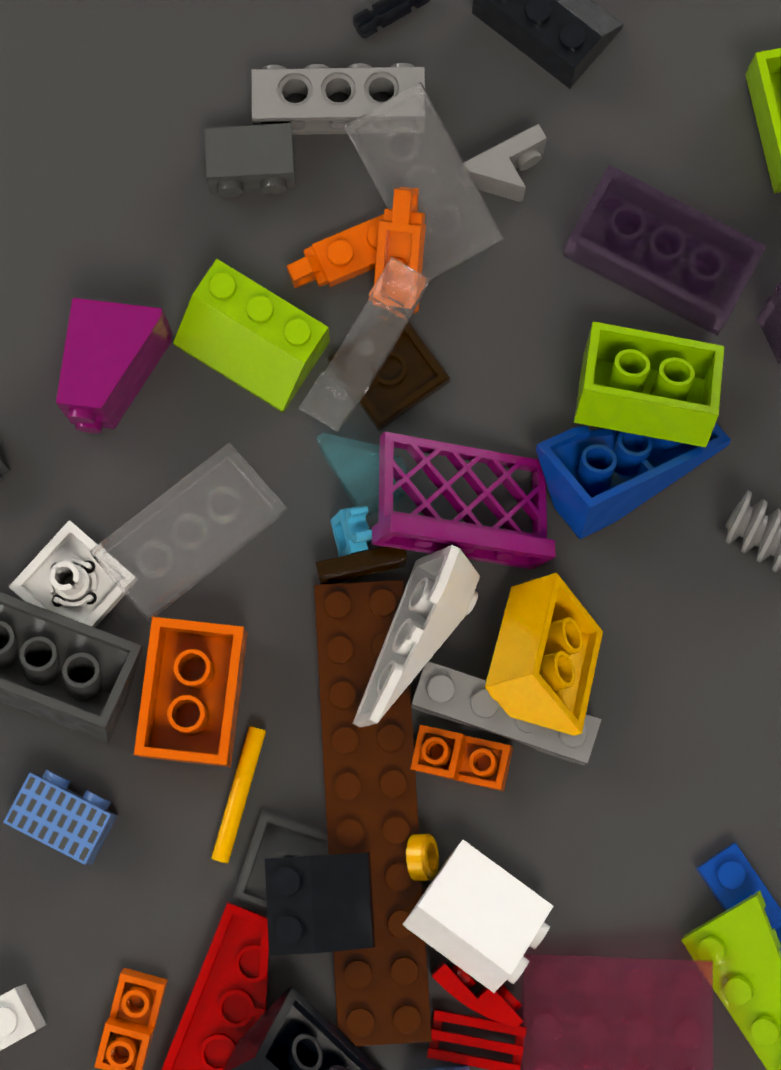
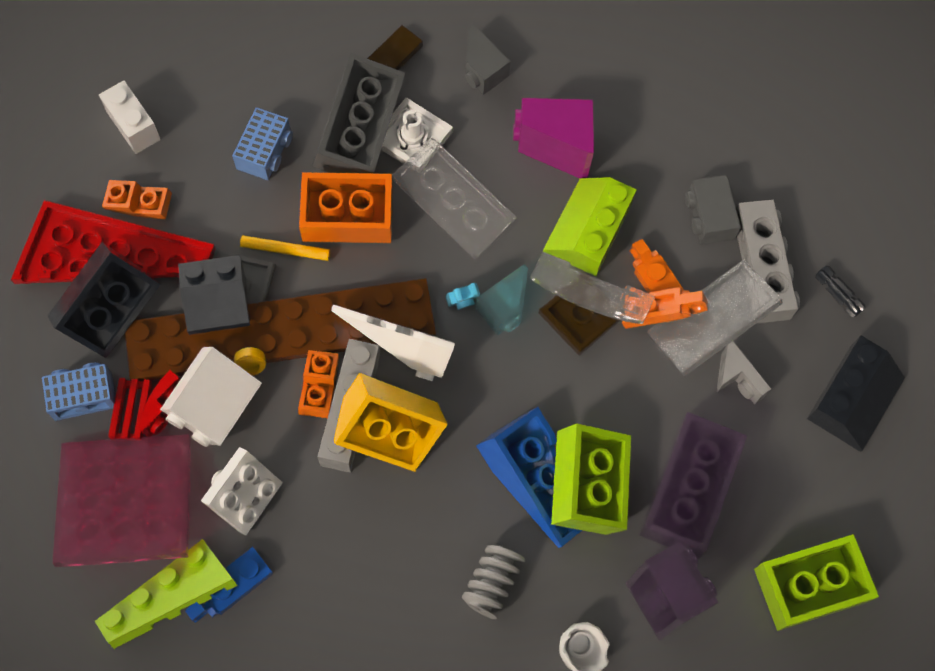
camera: 80 degrees right, 10 degrees down
(360, 564) = (443, 306): dark brown tile -> none
(476, 541) = (464, 360): magenta fence -> none
(623, 879) = (237, 487): none -> white plate

